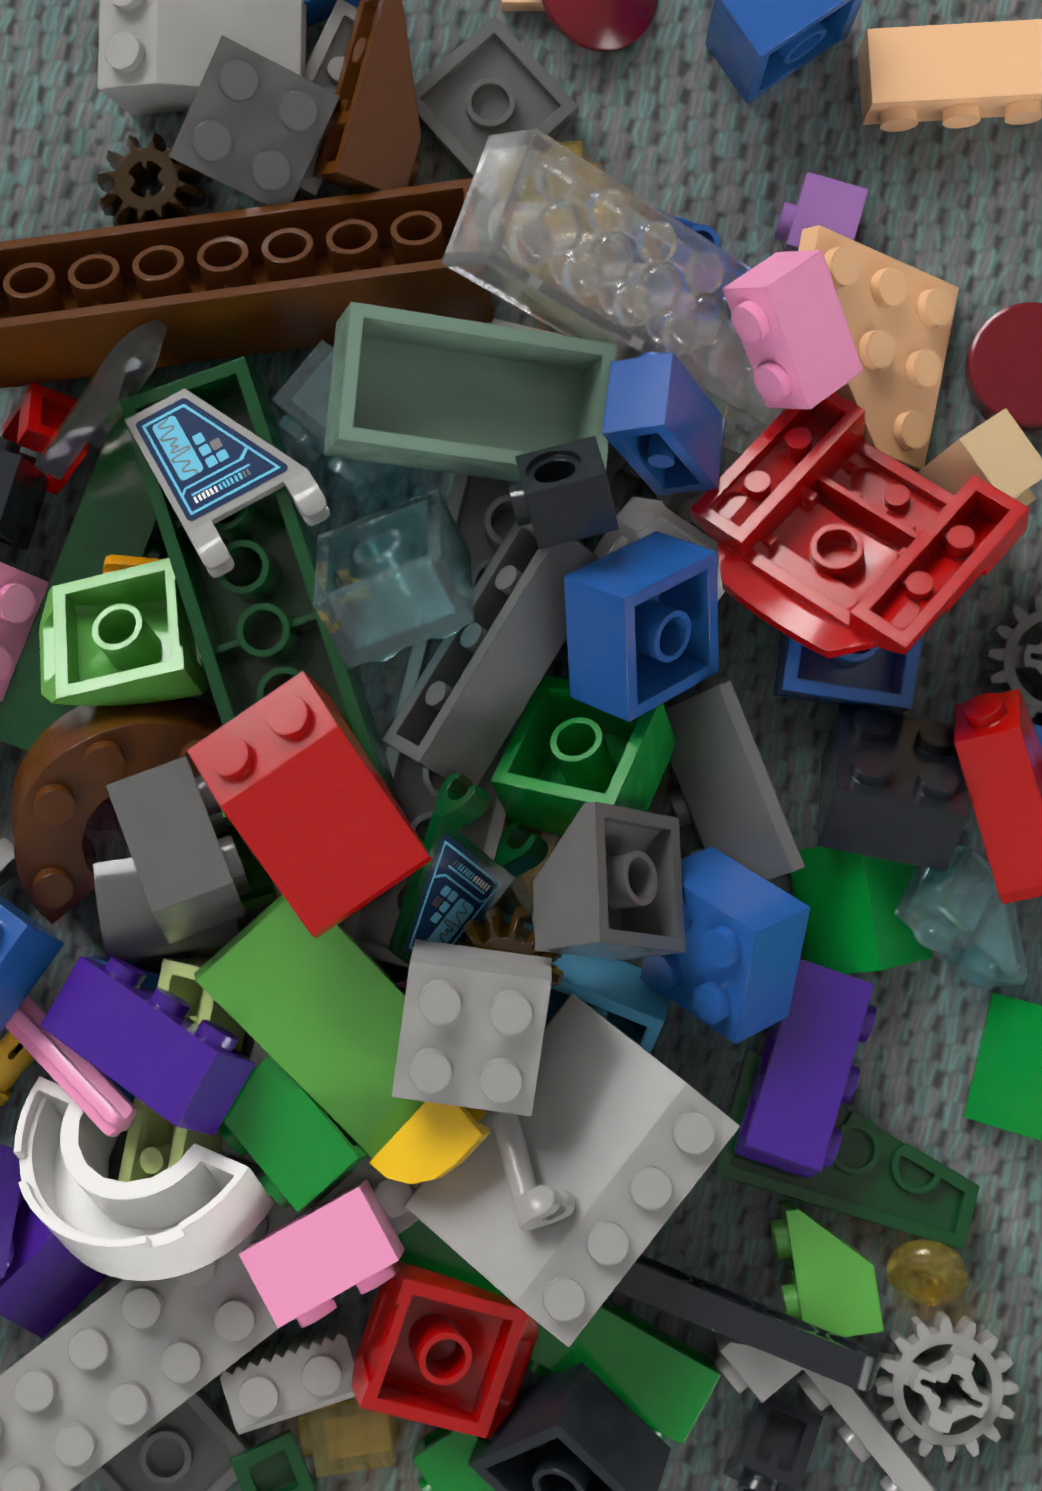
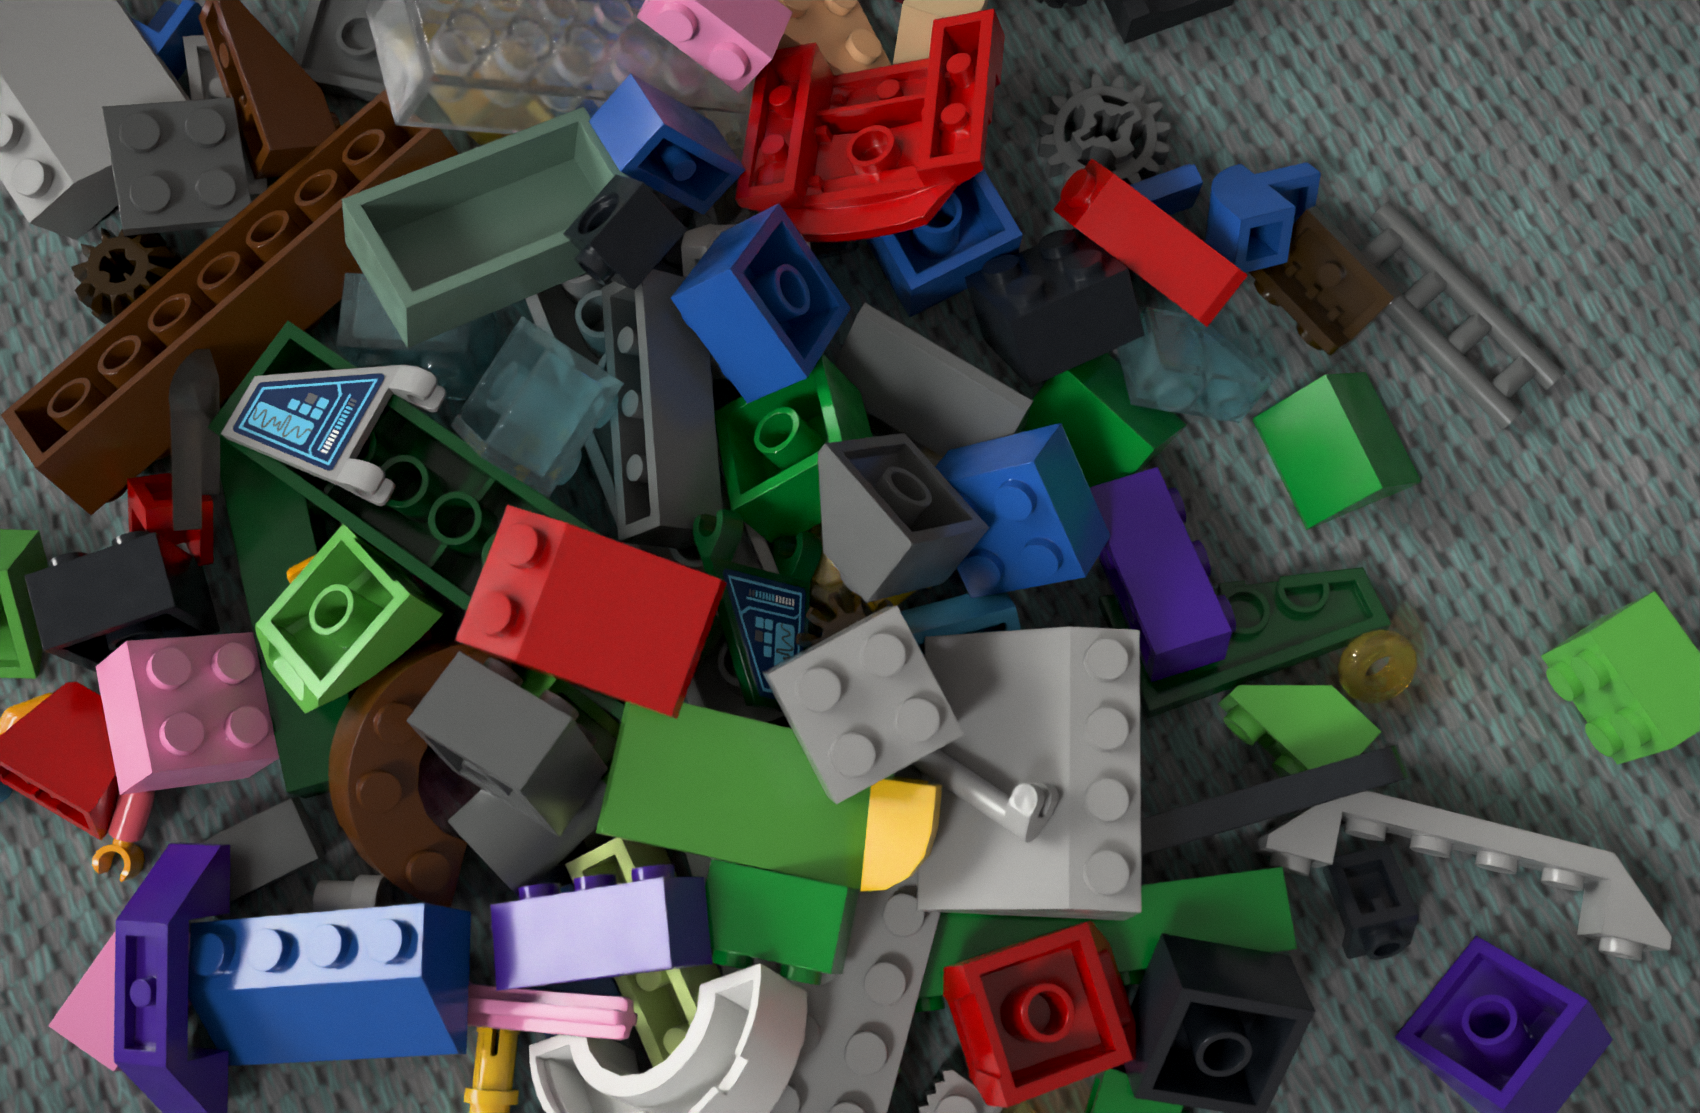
camera: 35 degrees left, 10 degrees down
(323, 1255) = (878, 1001): bright pink brick -> none
(953, 1360) = (1470, 770): light grey gear -> none

